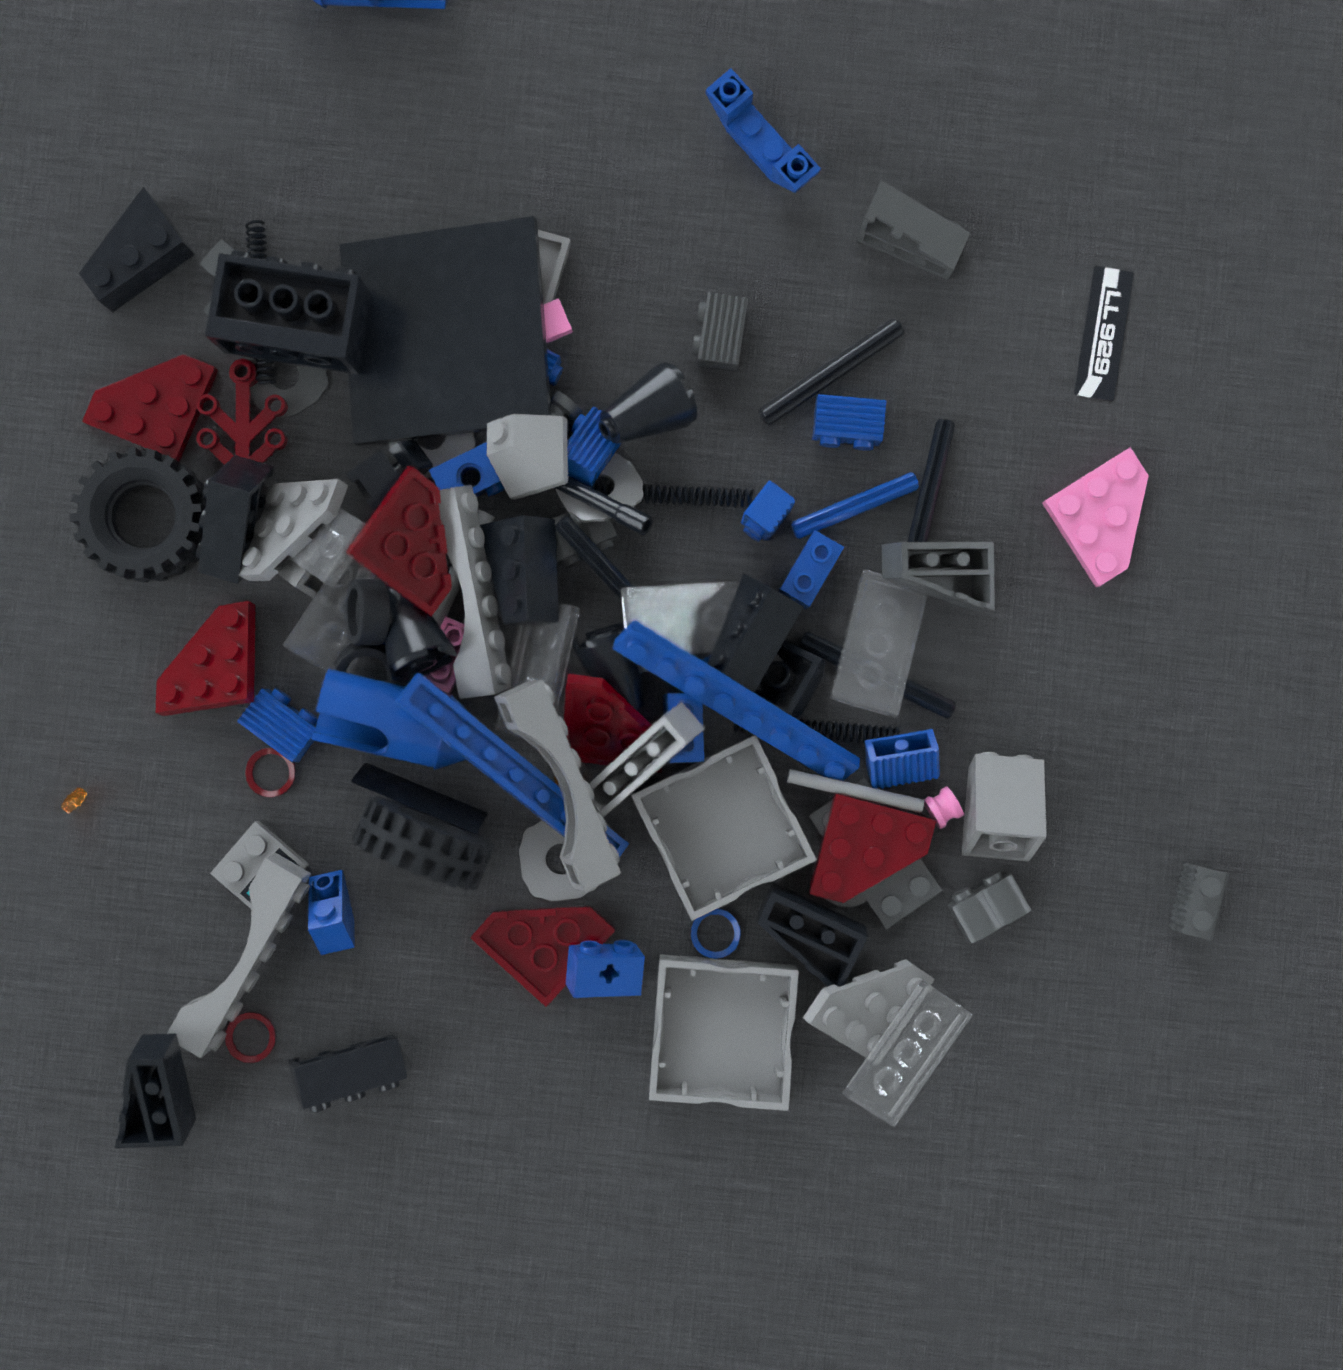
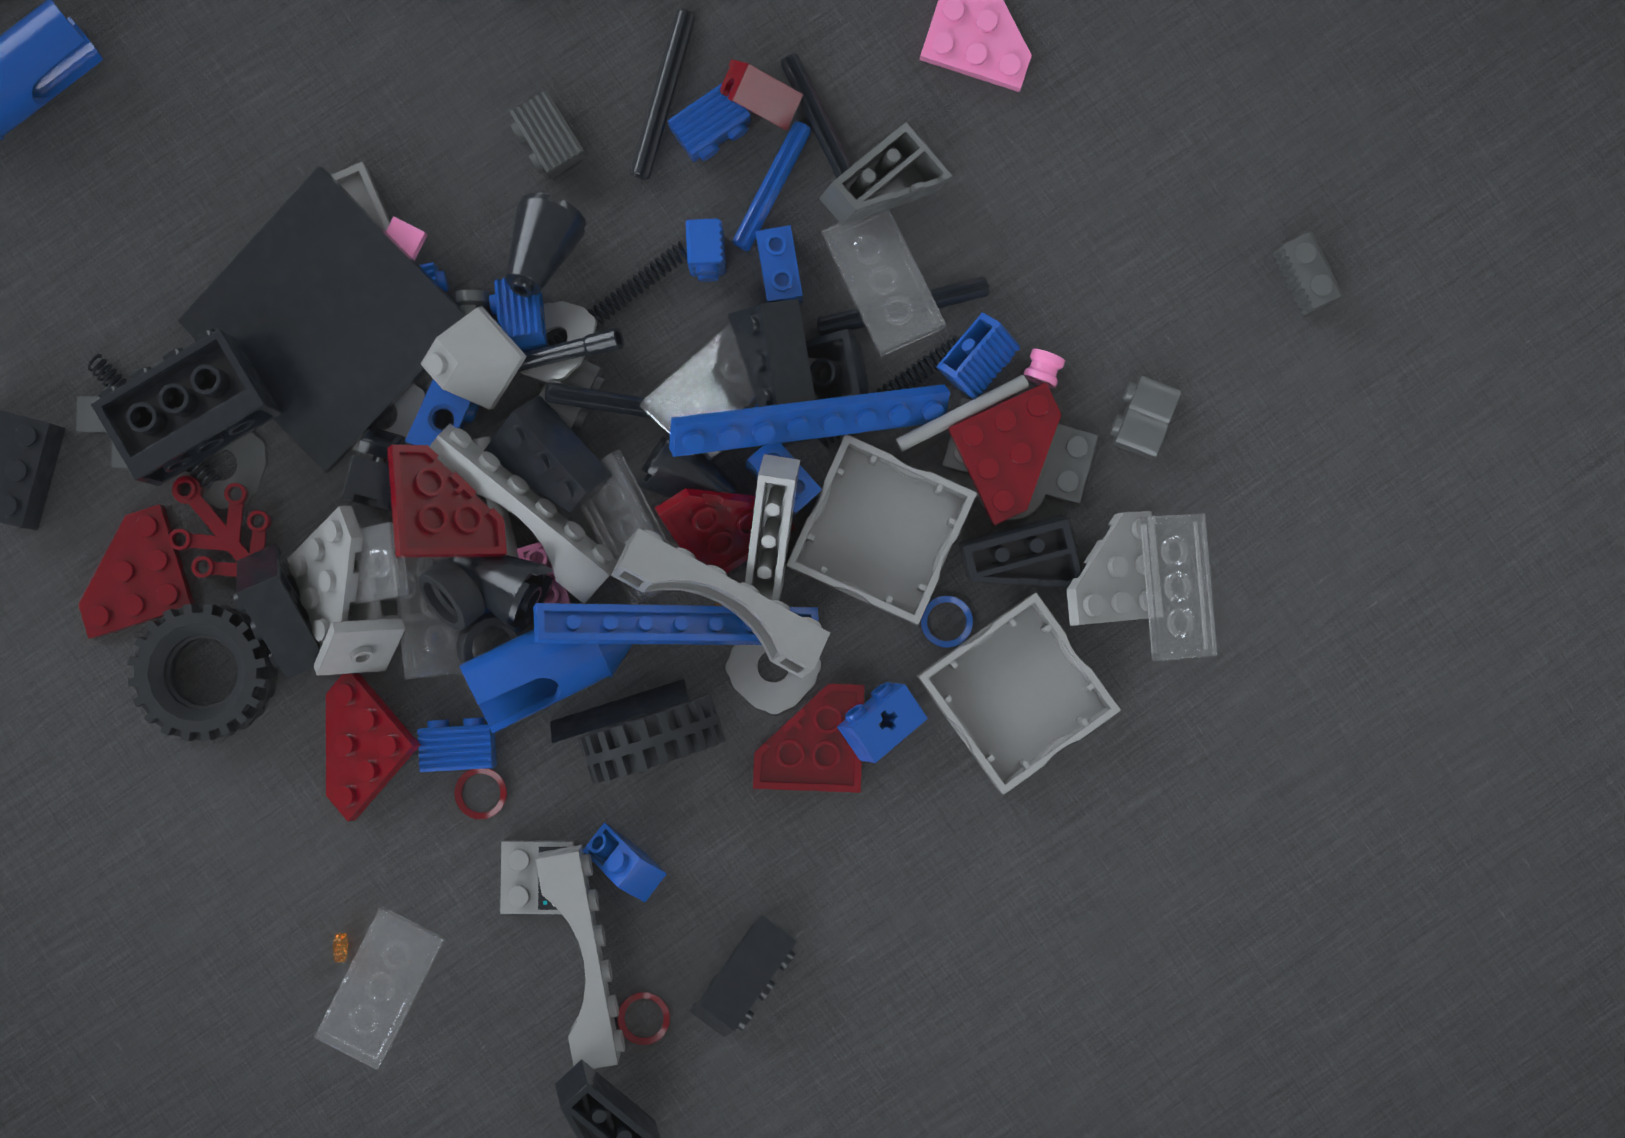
camera: 40 degrees left, 0 degrees up
(78, 853) = (379, 988): none -> clear tile
(268, 592) = (359, 646): none -> light grey plate
(903, 431) = (760, 93): none -> hinge
(1004, 807) = (1092, 327): light grey slope -> none

